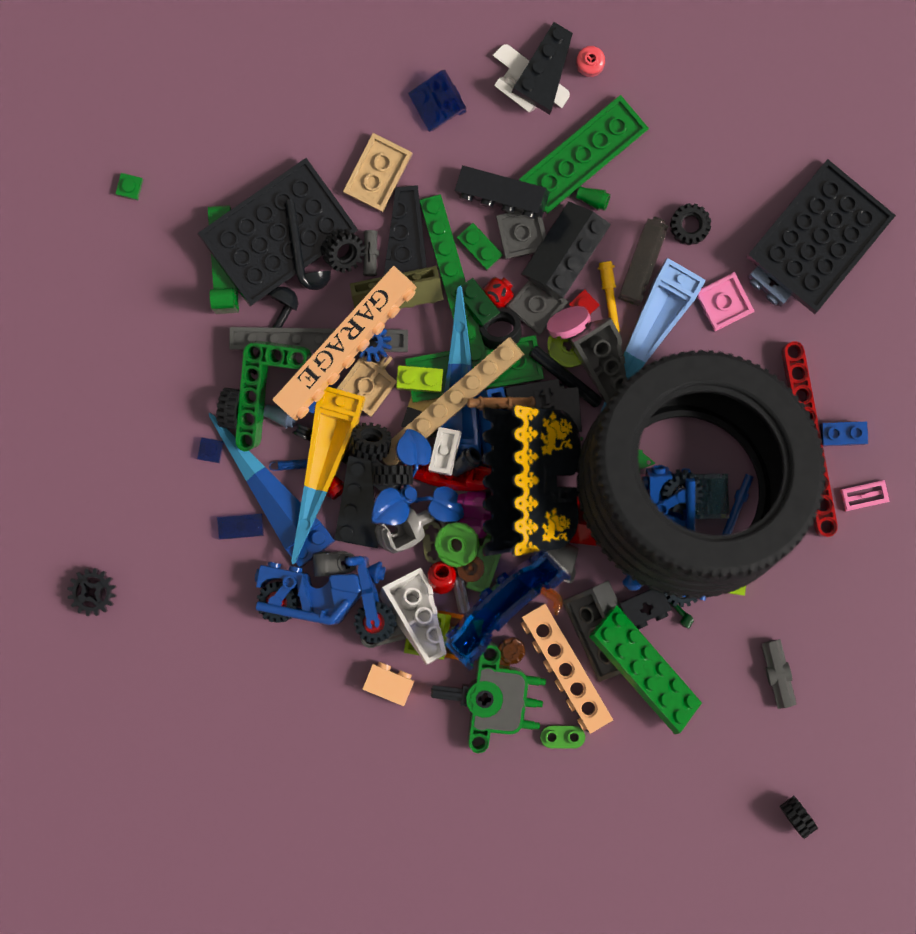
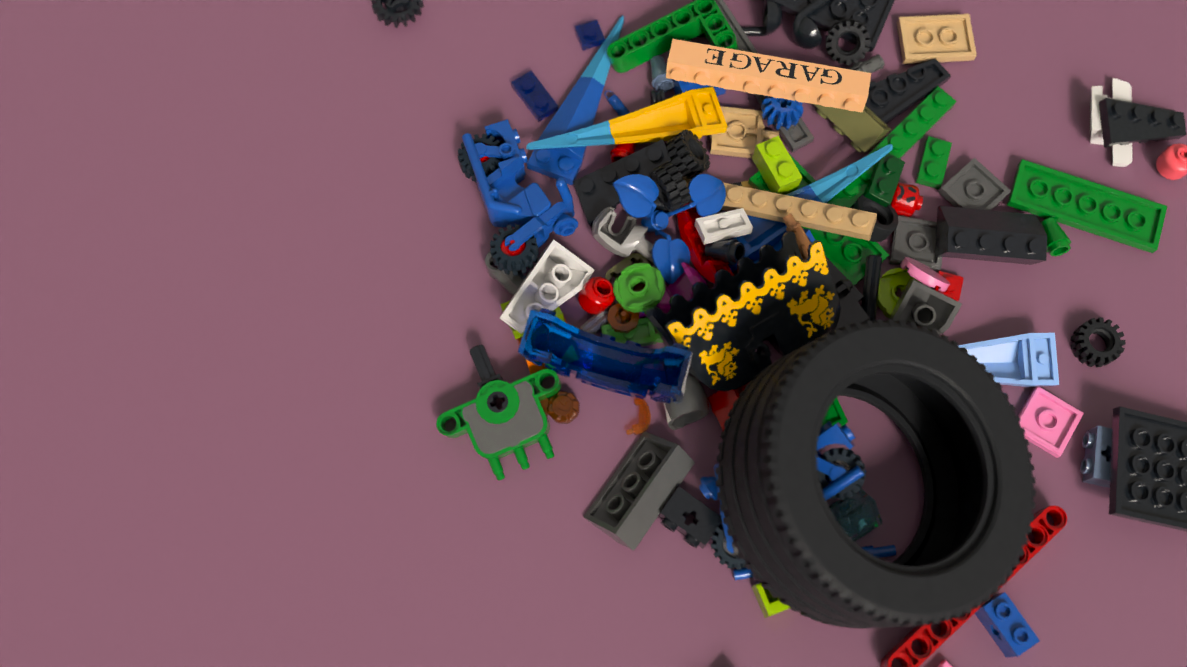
camera: 60 degrees right, 15 degrees down
(228, 408) = (638, 14): black tyre -> none
(330, 563) = (546, 179): dark grey piece -> none
(389, 684) = (460, 306): light nougat piece -> none
(437, 100) = (1038, 52): clear blue plate -> none
(502, 192) = (1001, 148): black brick -> none
(562, 736) = (503, 510): bright green plate -> none
(600, 714) = (549, 535): light nougat brick -> none
(608, 284) = (997, 286): yellow pin -> none
(643, 261) = (1034, 312): clear smoke door -> none
(645, 669) = (625, 553): green plate -> none
(687, 620) = (703, 572): dark green hand -> none

